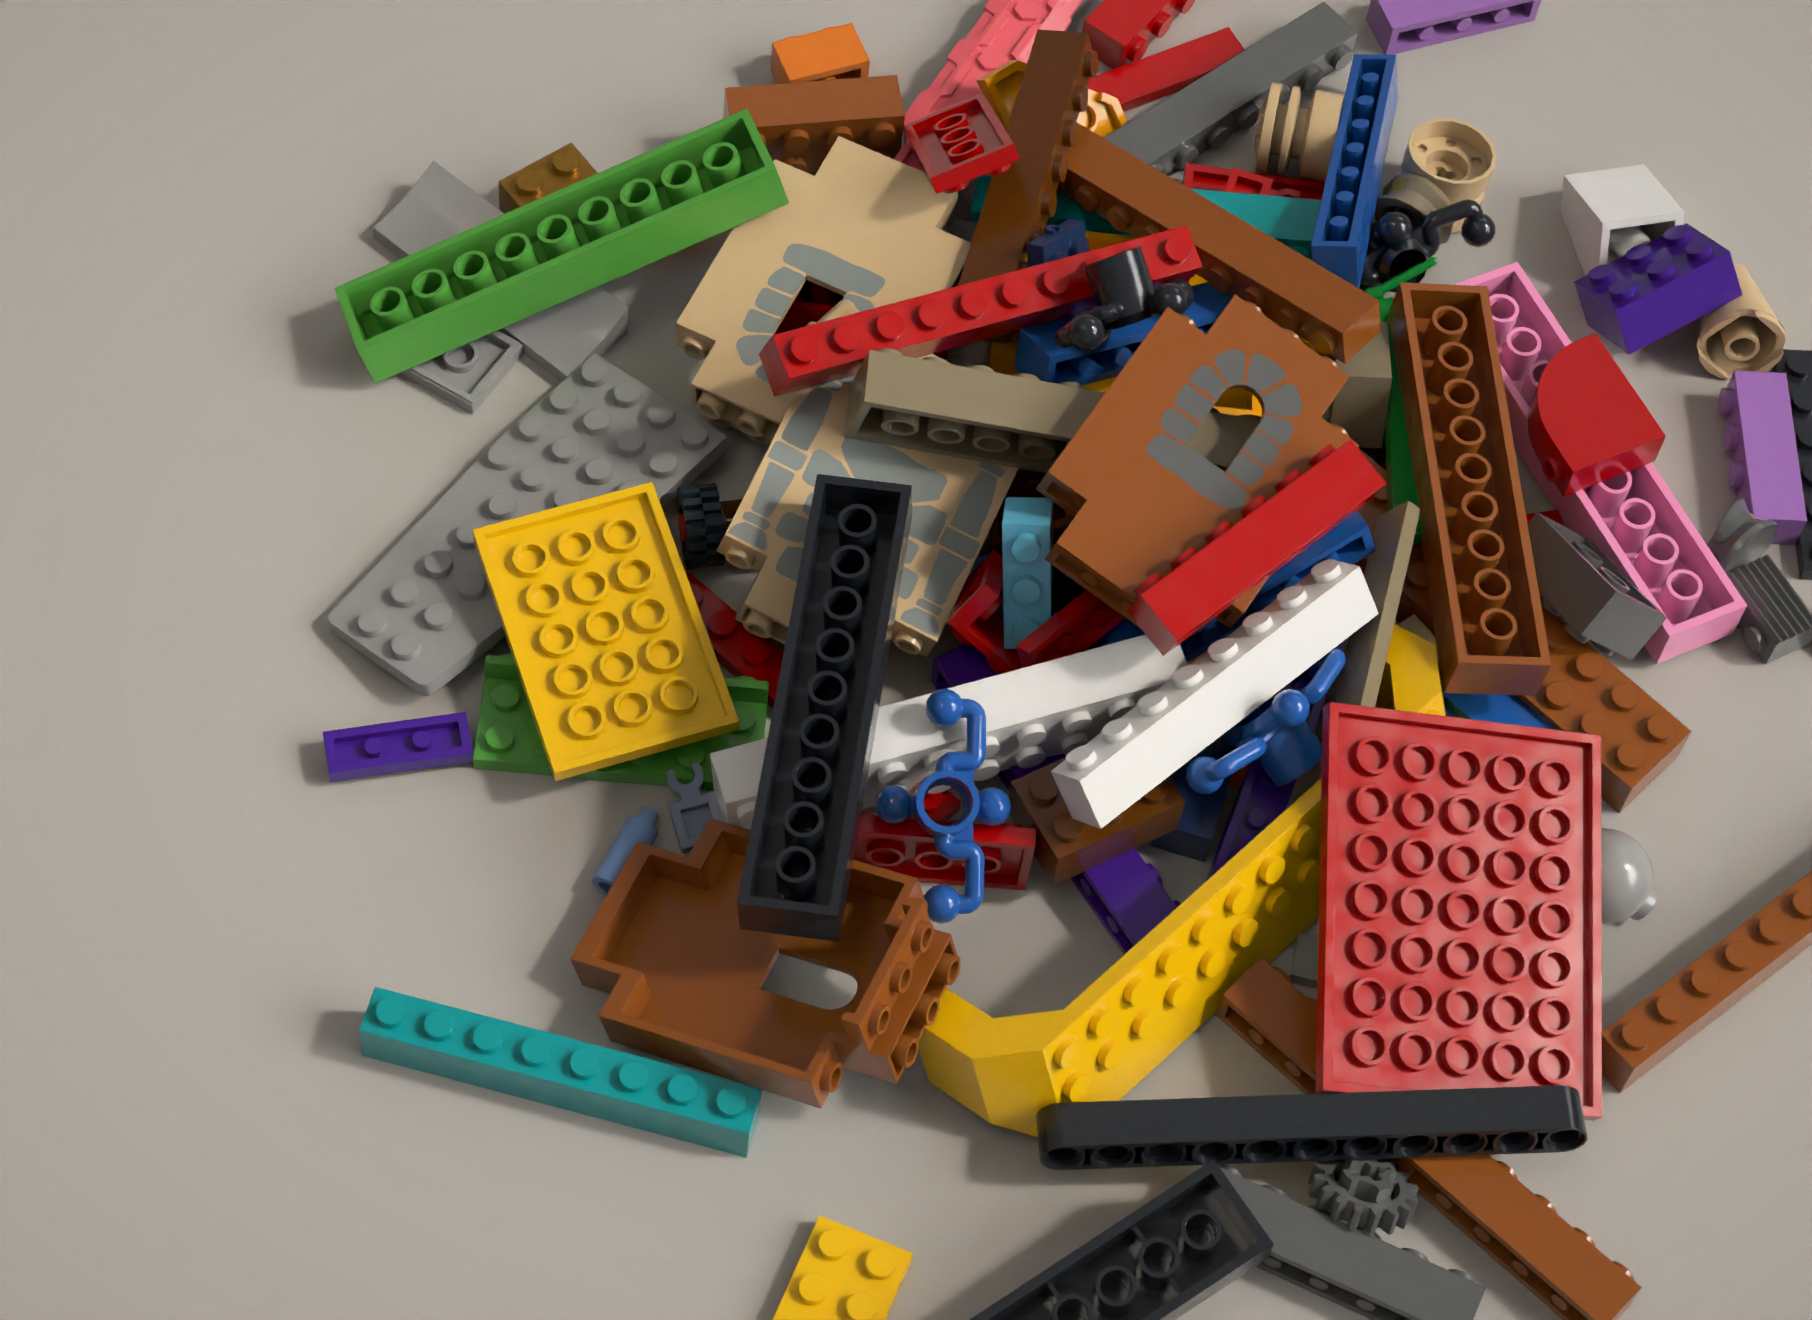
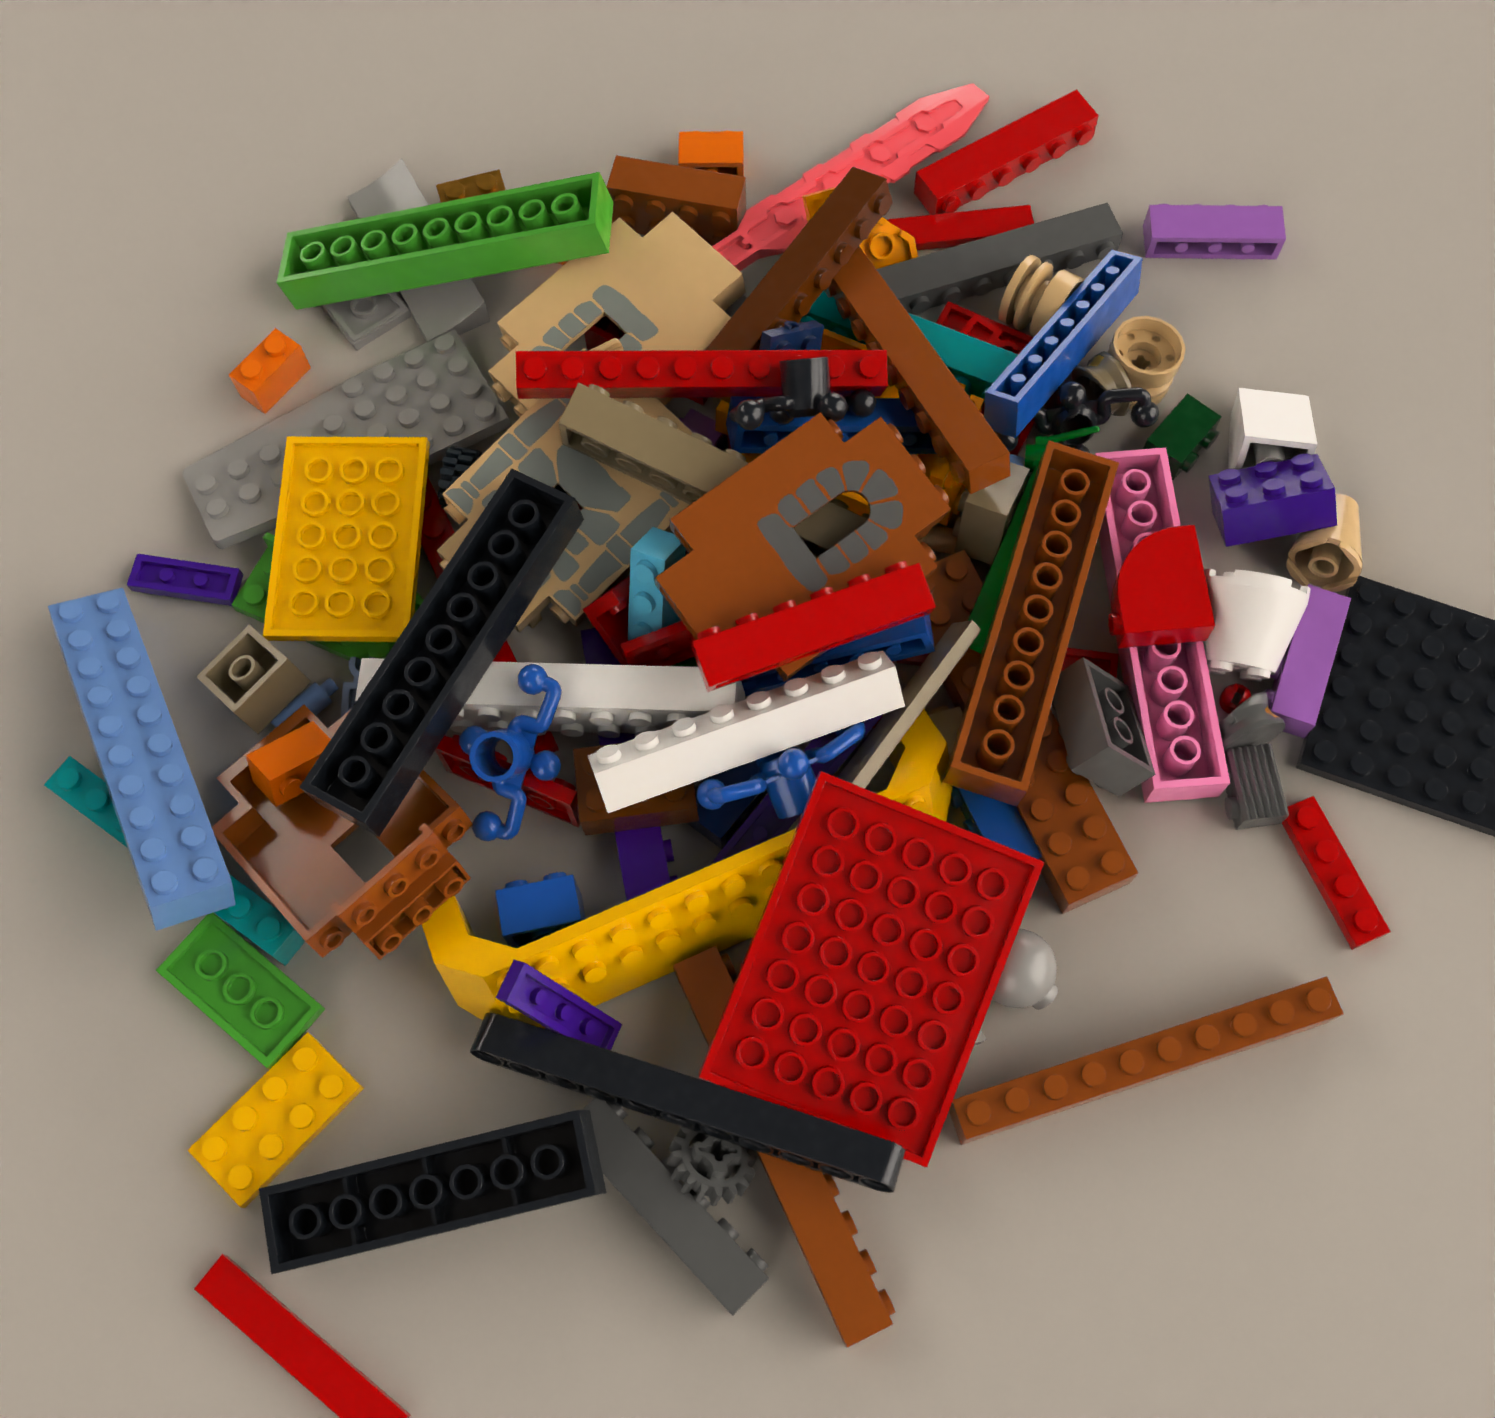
camera: 30 degrees right, 10 degrees up
(384, 465) = (270, 371): none -> orange brick
(475, 953) = (142, 760): none -> medium blue brick
(559, 831) = (253, 679): none -> dark tan brick
(668, 908) = (285, 762): none -> orange brick
(712, 1195) = (240, 990): none -> bright green plate
(961, 144) = (755, 242): red plate -> none
(1045, 973) = (538, 908): none -> blue brick
(1119, 1062) = (556, 1007): none -> dark purple plate
(1526, 238) = (1185, 433): none -> dark green brick
(1697, 517) = (1228, 694): none -> red hinge
(1704, 425) = (1253, 622): none -> white cone

